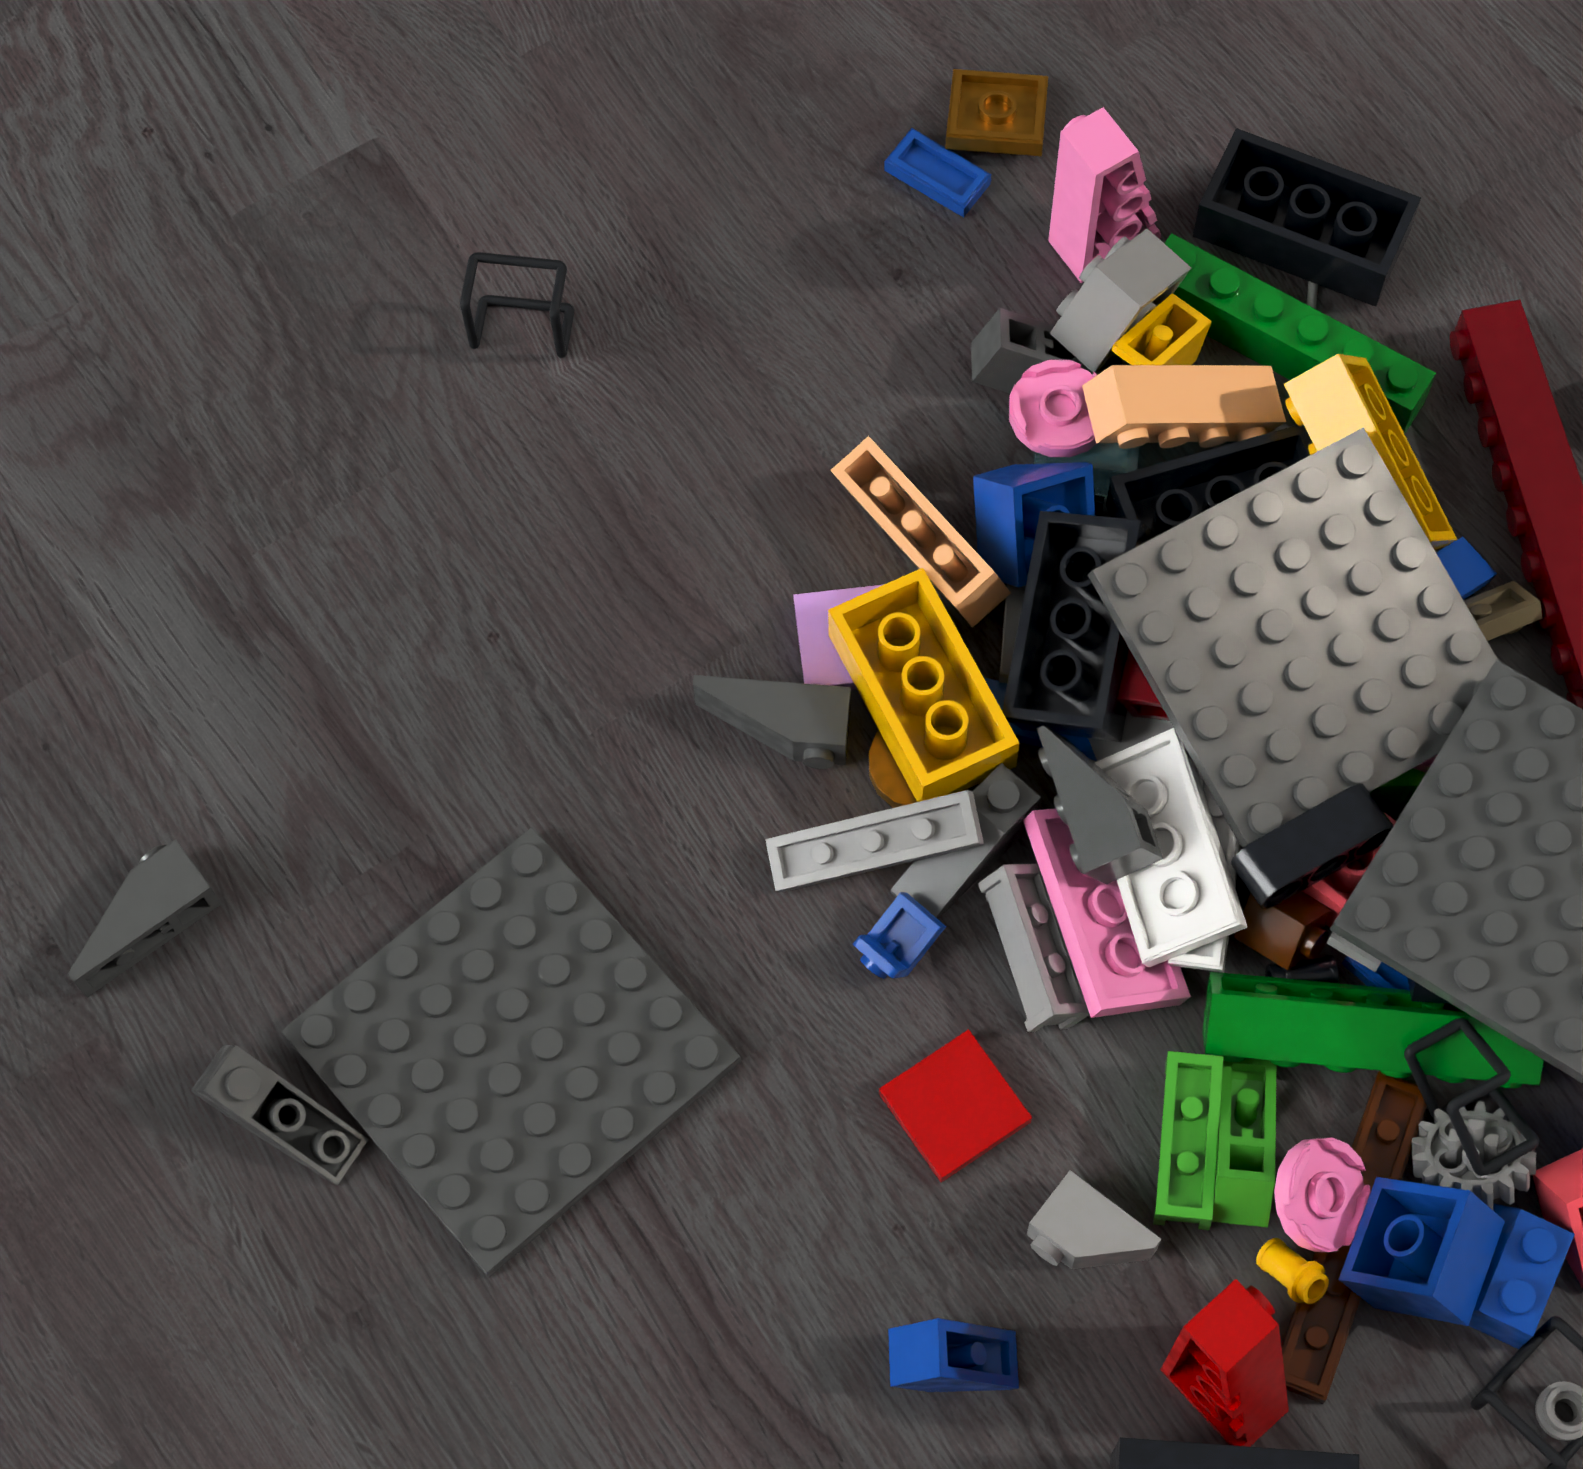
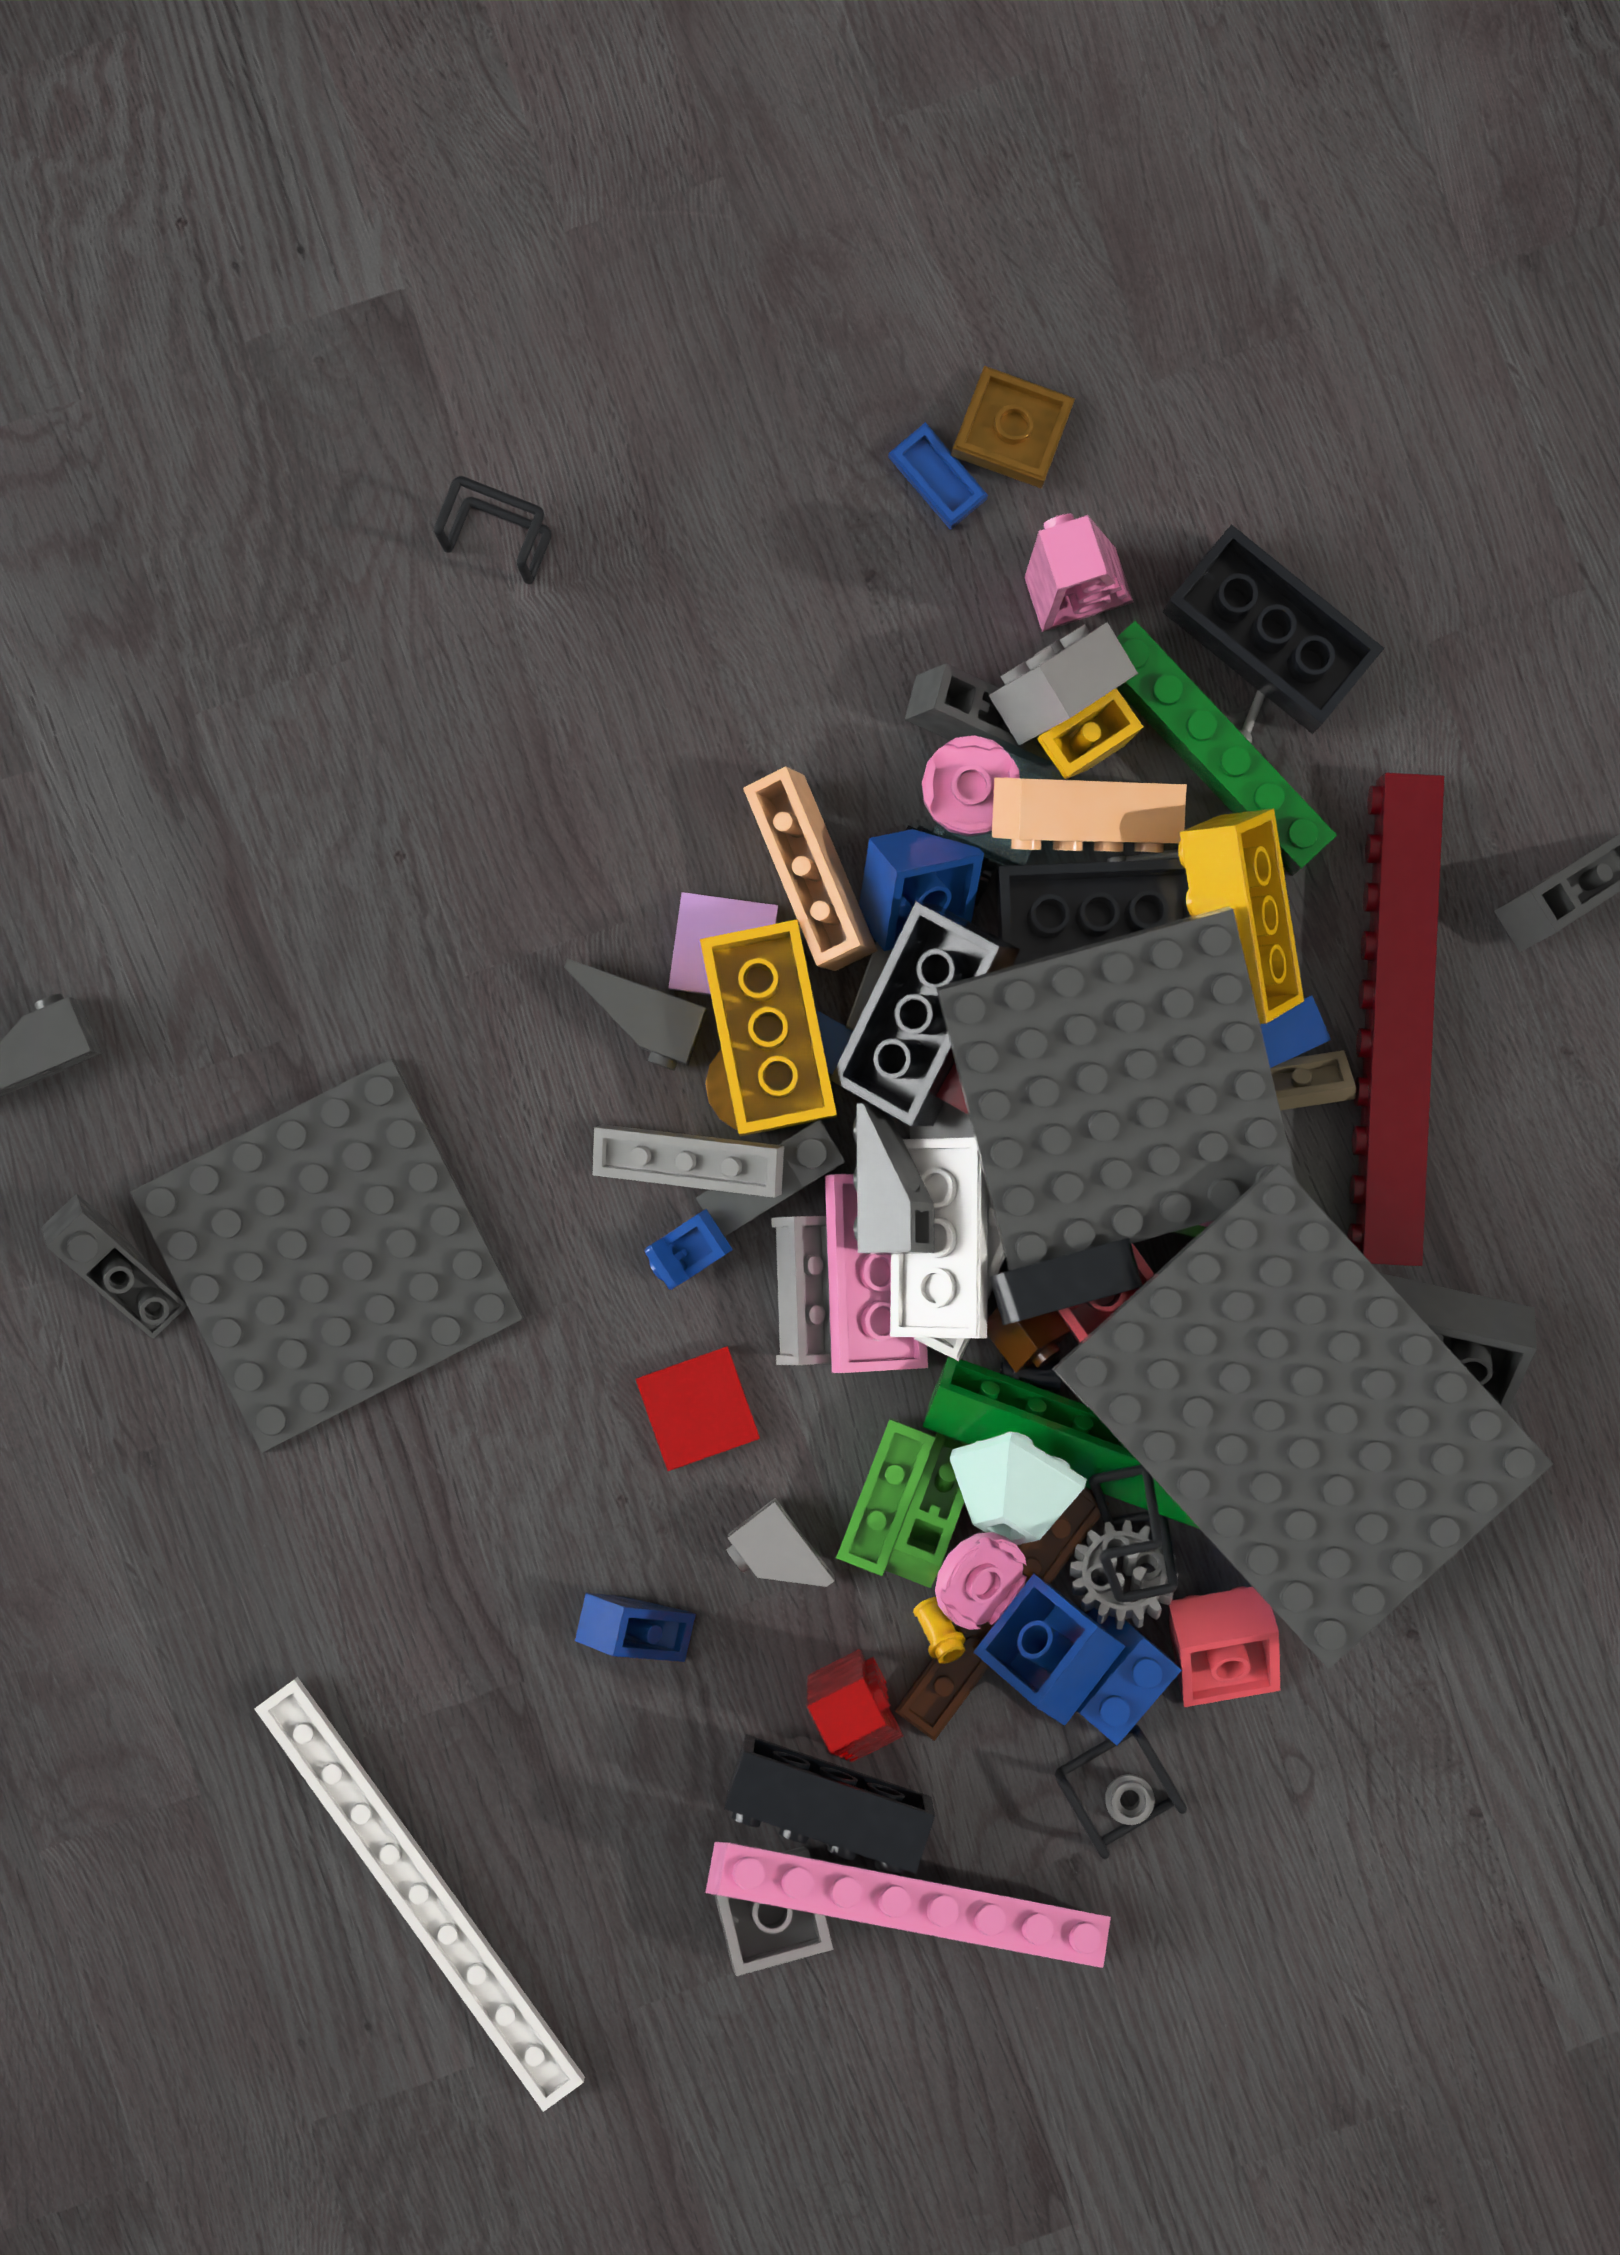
camera: 15 degrees right, 20 degrees up
(1325, 1077) = (1014, 1486): none -> light aqua slope

